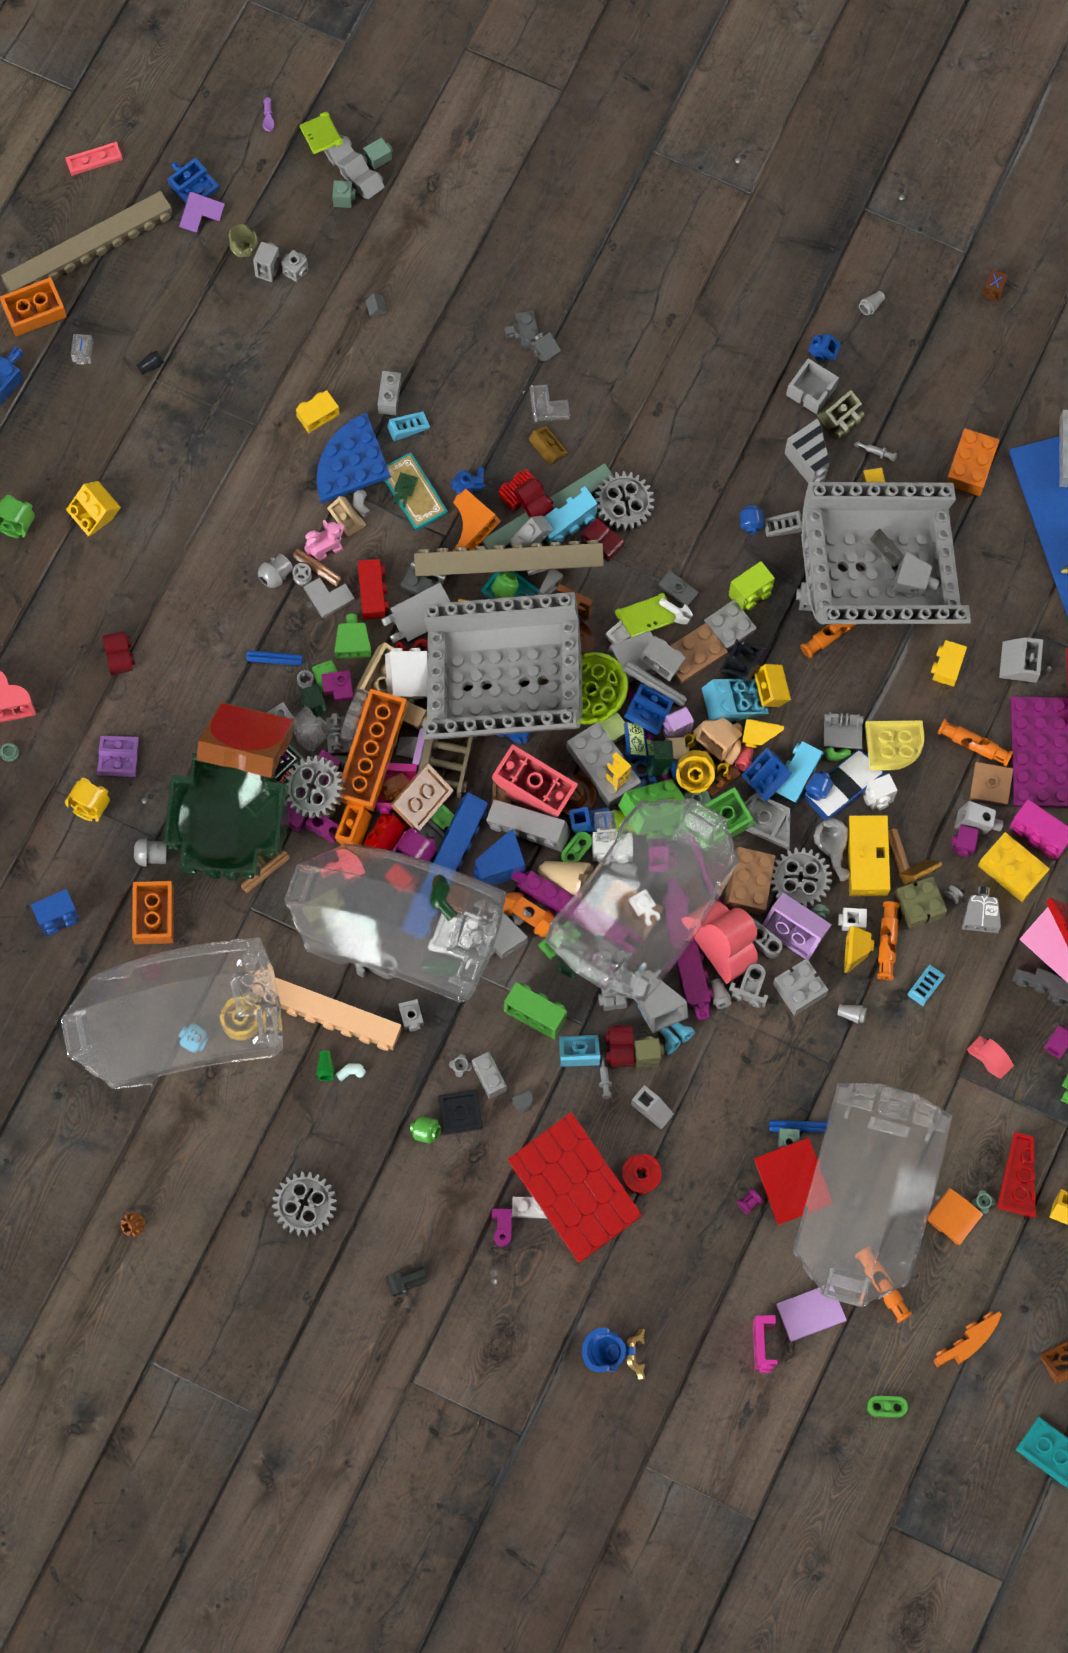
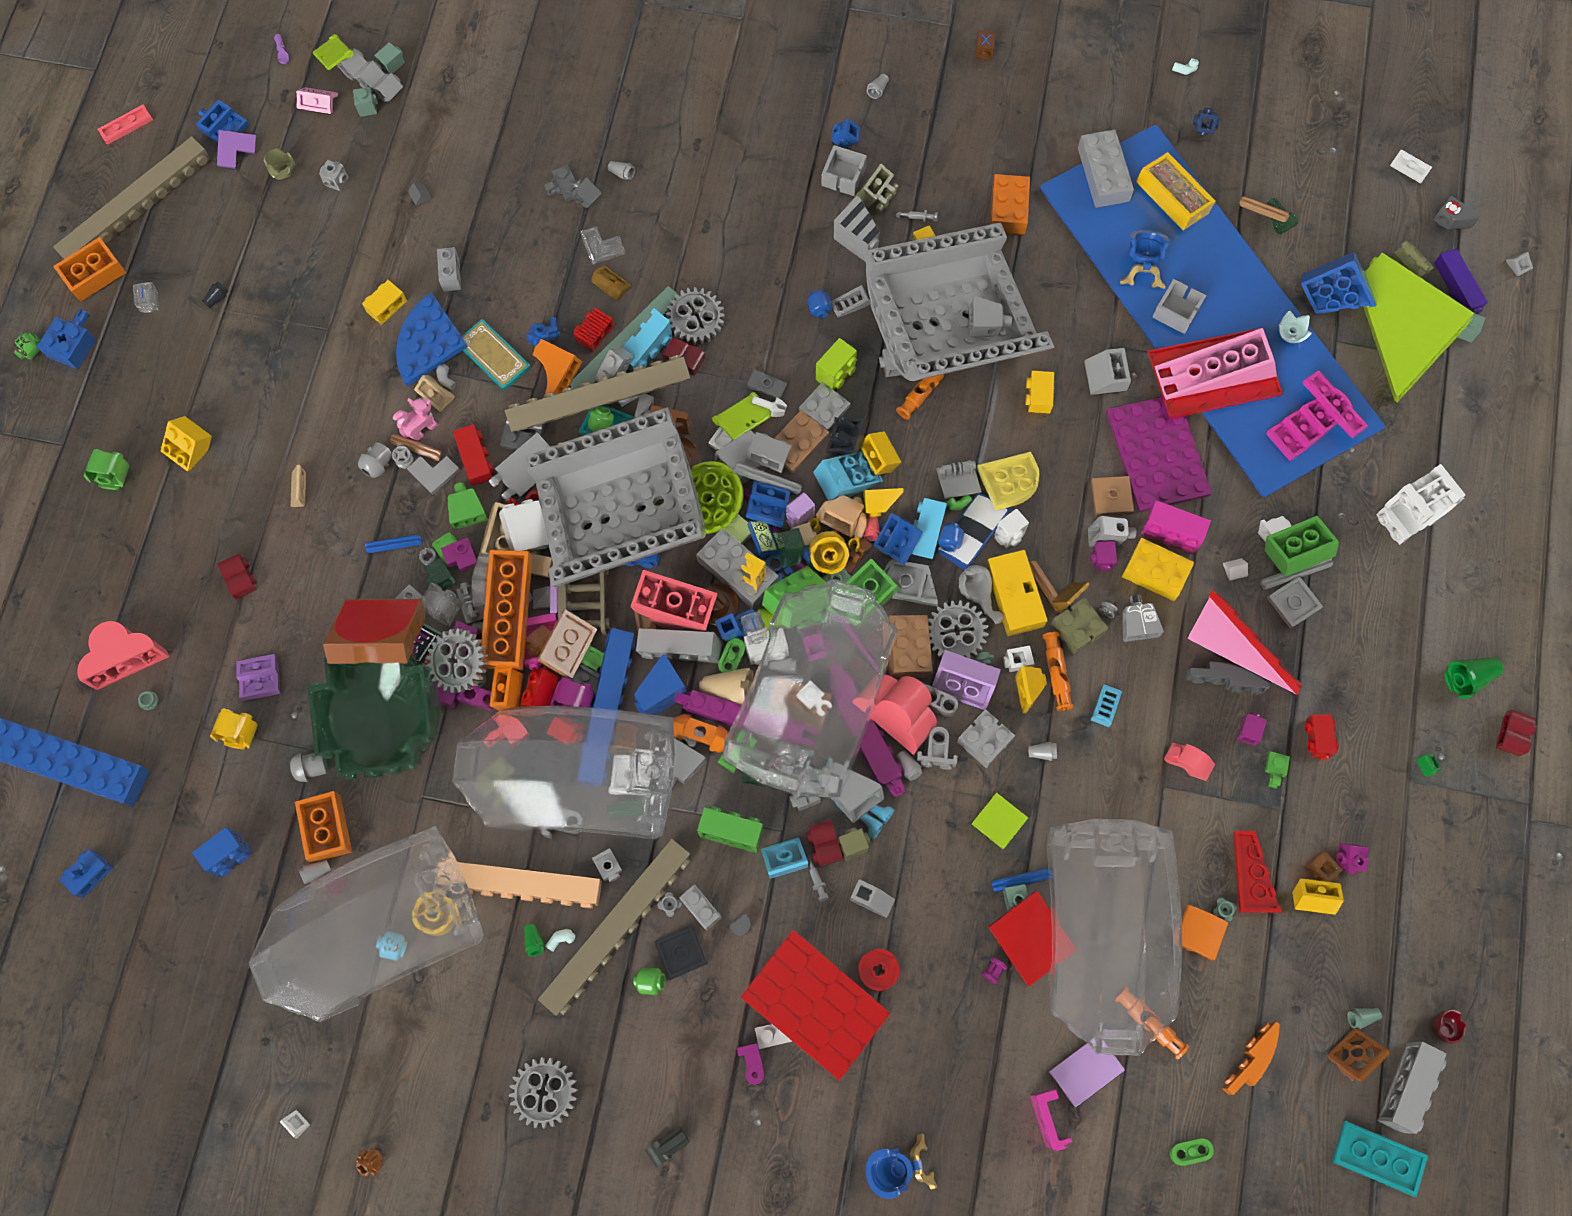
camera: 10 degrees left, 0 degrees up
(70, 1175) = (295, 1124): none -> white slope
(134, 951) = (313, 871): none -> light grey cone
(193, 579) = (298, 487): none -> tan slope
(265, 871) = (429, 755): medium nougat axle -> none
(266, 261) = (305, 176): light grey brick -> none
(292, 179) = (315, 100): none -> bright pink panel
(403, 433) = (470, 303): medium azure slope -> none
(405, 486) = (482, 352): clear green plate -> none
(405, 1073) = (614, 929): none -> dark tan brick
(438, 896) = (605, 742): dark green arm -> none
(533, 498) = (608, 332): dark red brick -> none
(587, 329) = (622, 170): none -> light grey cone
(792, 1067) = (999, 821): none -> lime tile
(887, 547) = (954, 297): clear smoke plate -> none
(979, 744) = (1091, 461): orange piece -> none

